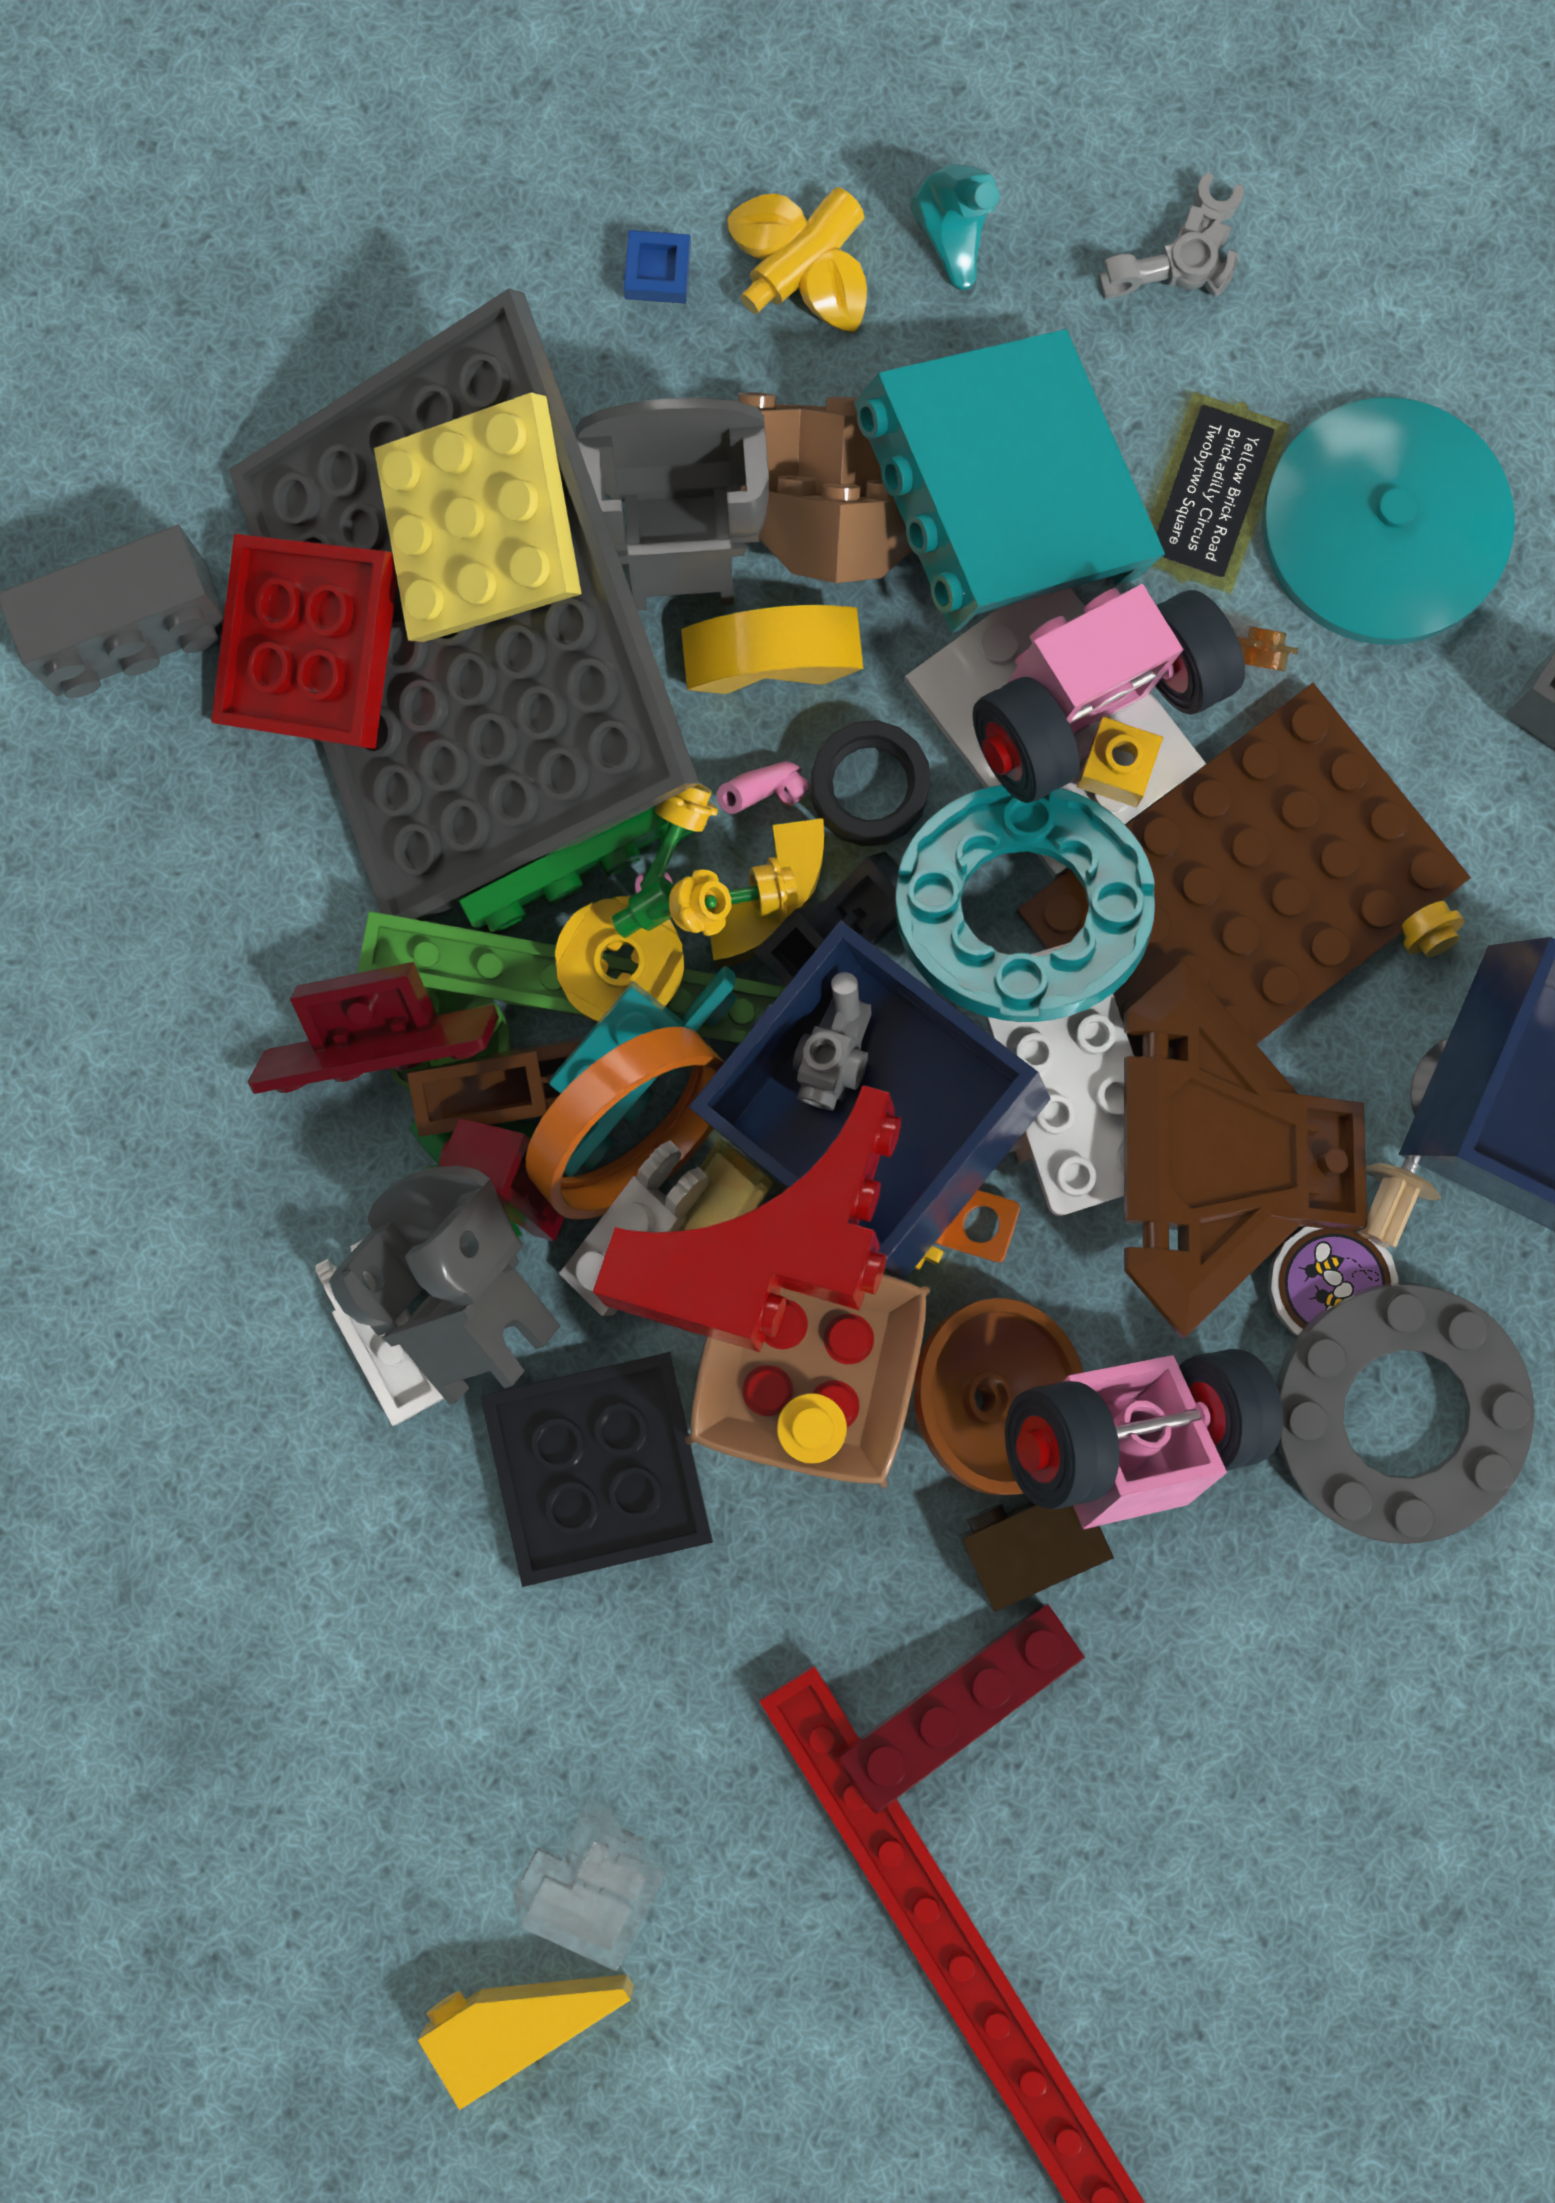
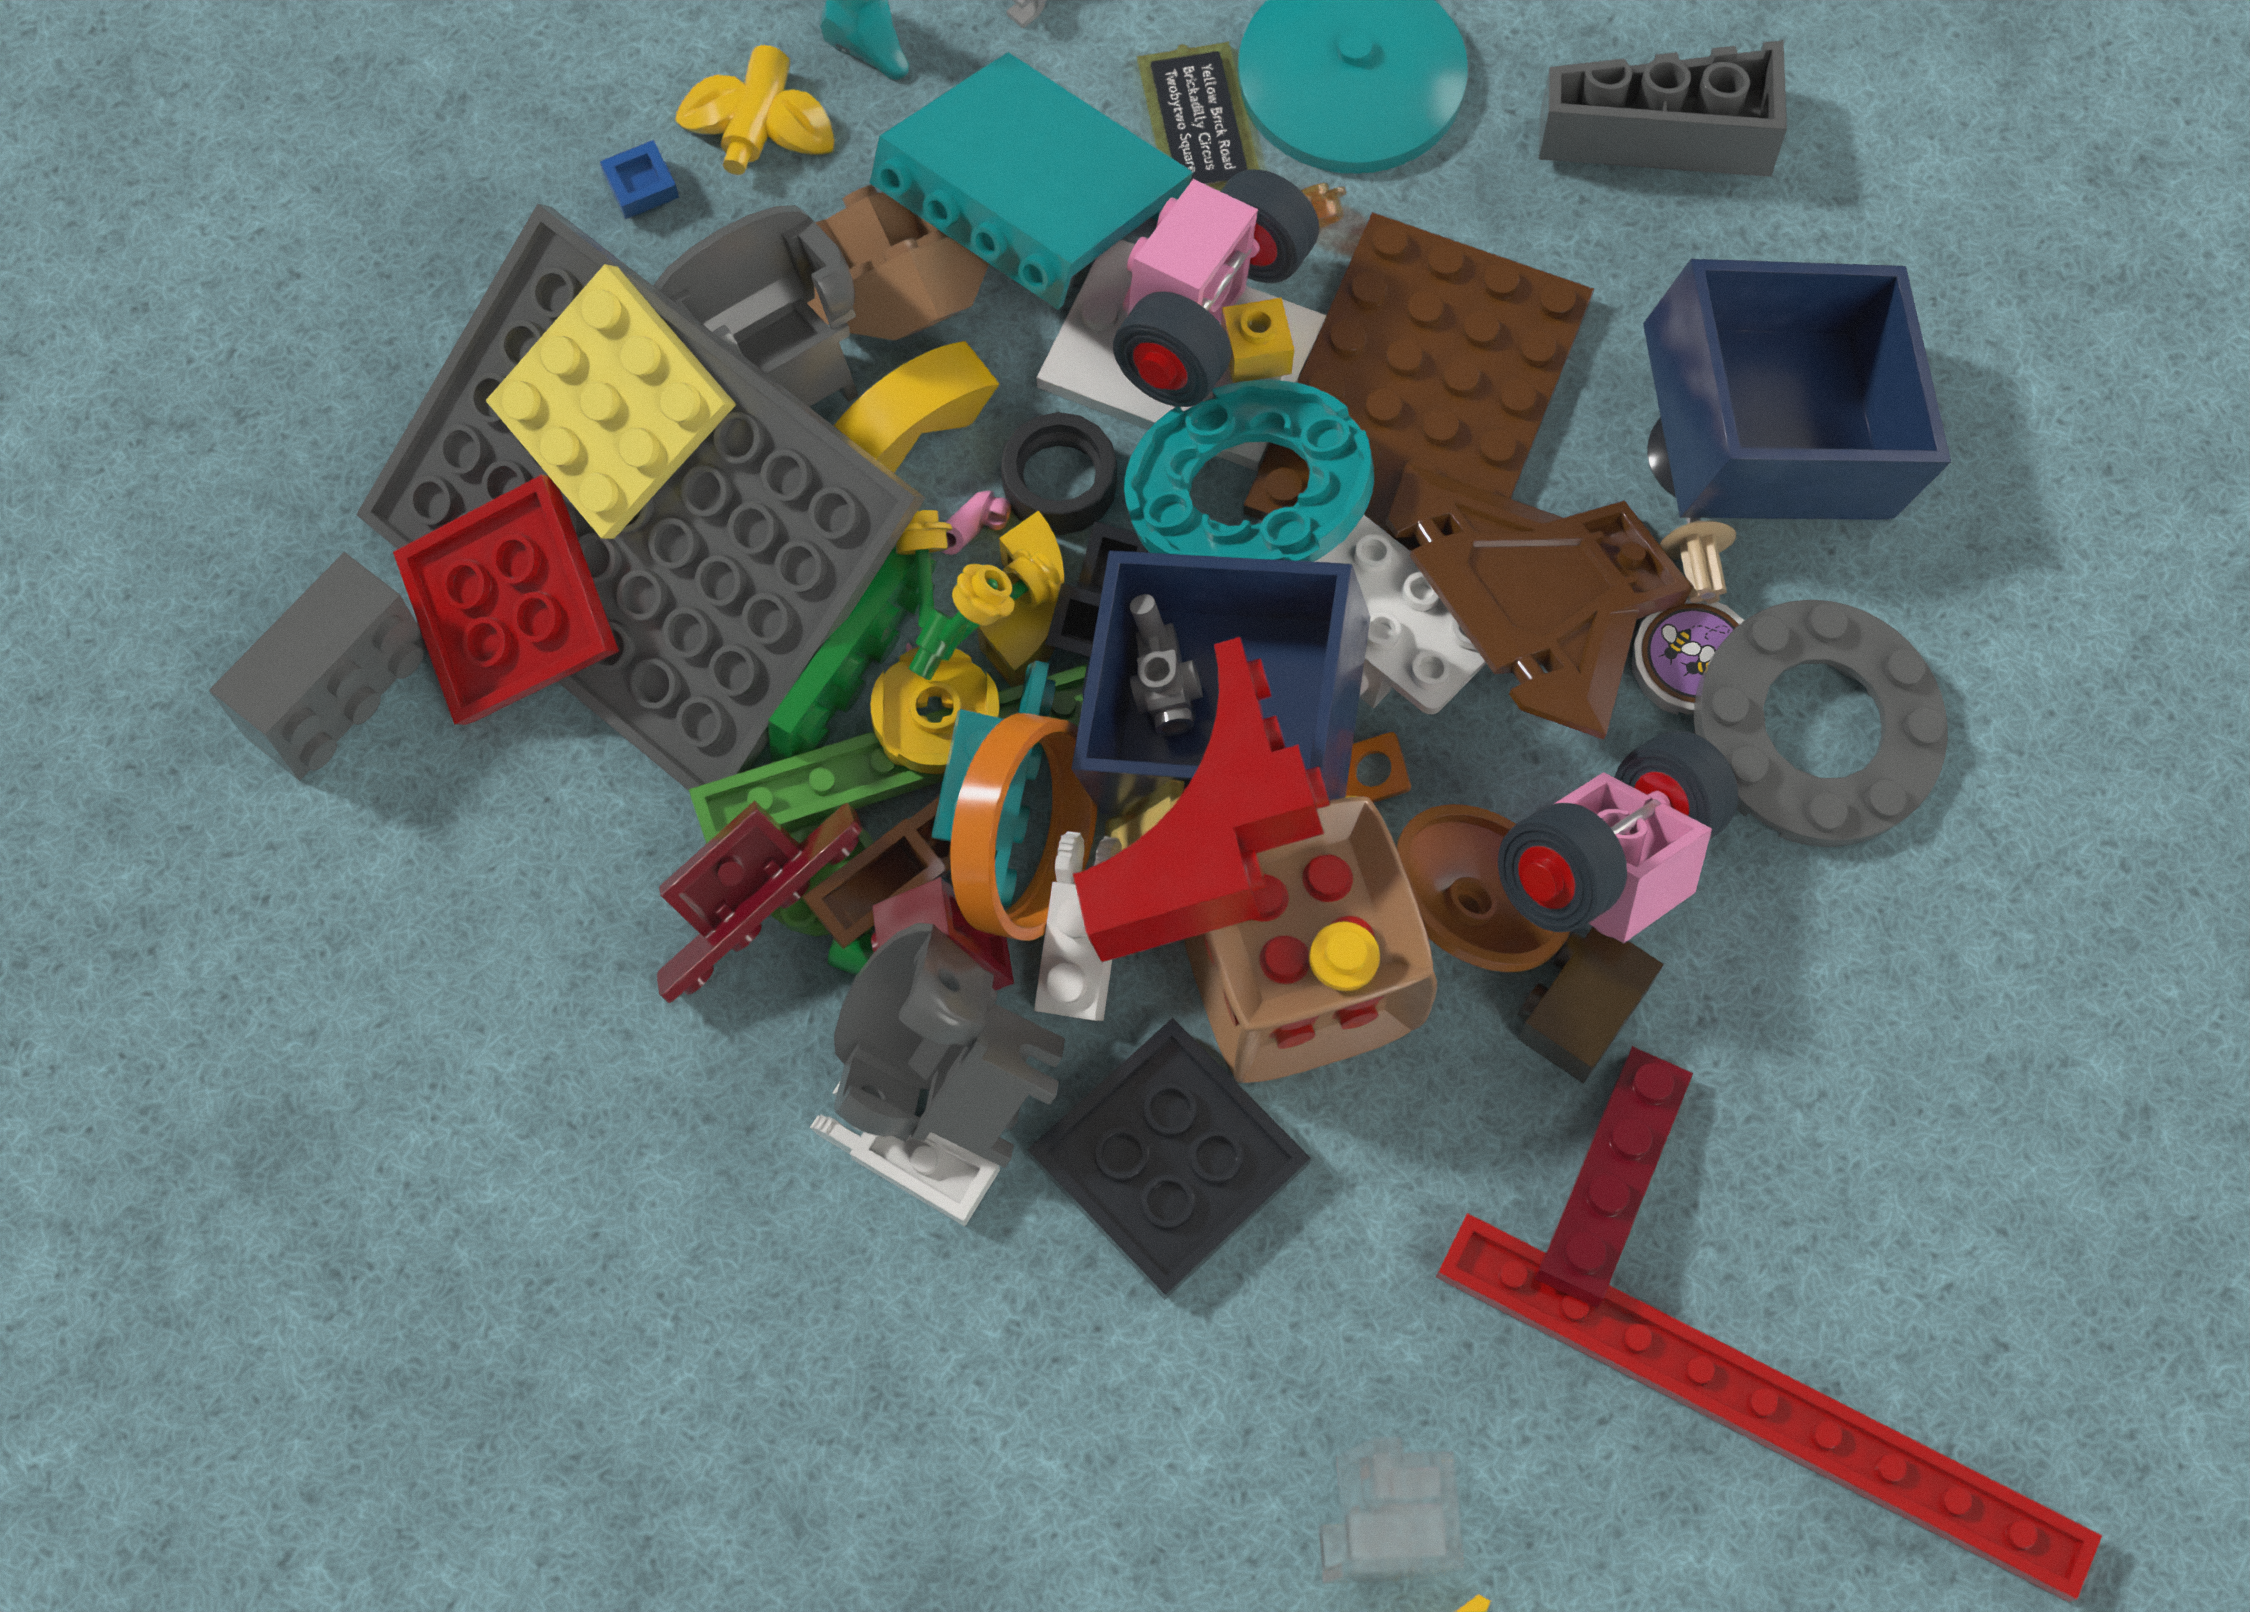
camera: 30 degrees left, 15 degrees down
(1432, 929) = (1590, 342): yellow plate -> none

